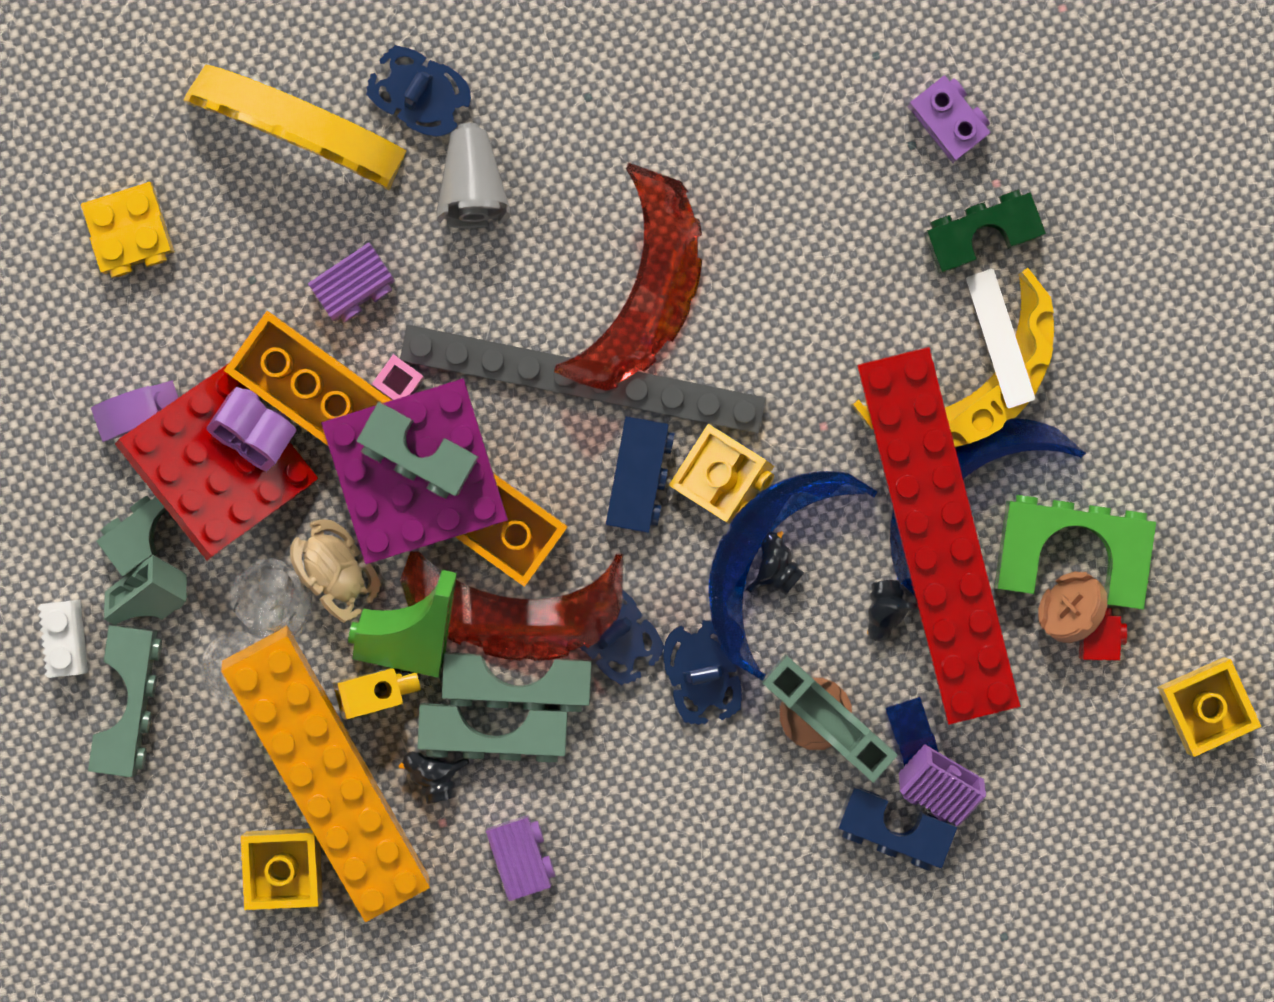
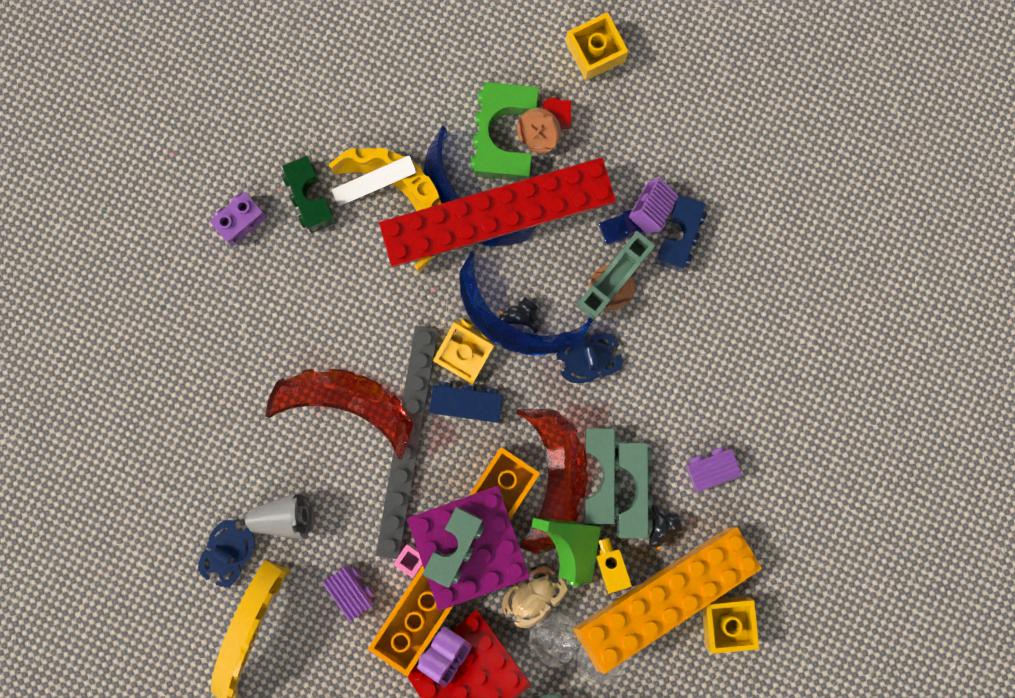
camera: 90 degrees left, 5 degrees down
(625, 643) = (573, 407): dark blue shield -> none
(887, 608) = (544, 245): black animal -> none

